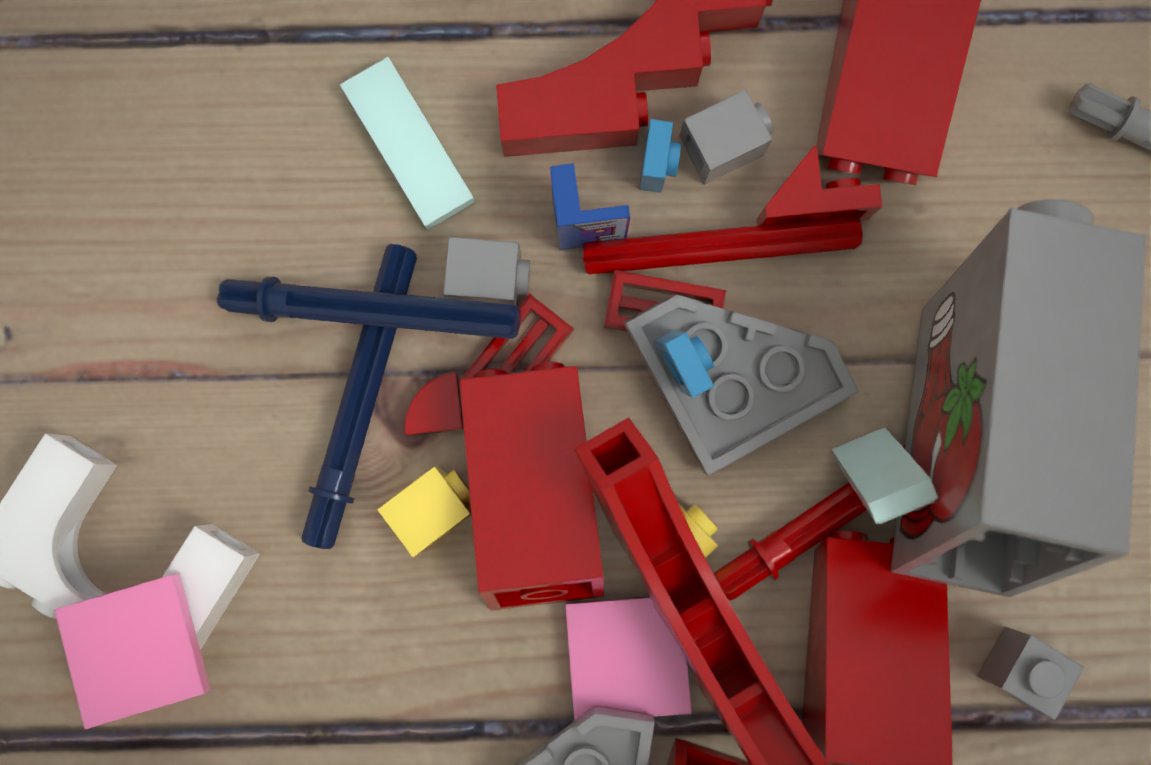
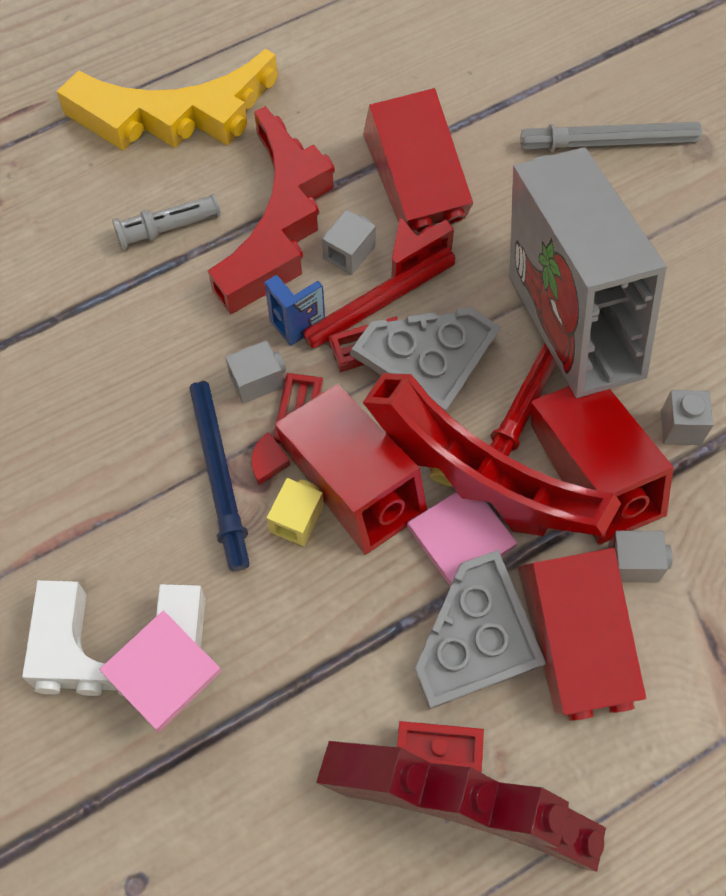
camera: 30 degrees left, 20 degrees down
(276, 299) = (196, 418): dark blue axle -> none
(407, 143) = (171, 332): light aqua tile -> none
(660, 156) = (318, 266): dark azure plate -> none
(687, 361) = (396, 347): dark azure plate -> none
(884, 475) = (538, 345): light aqua tile -> none

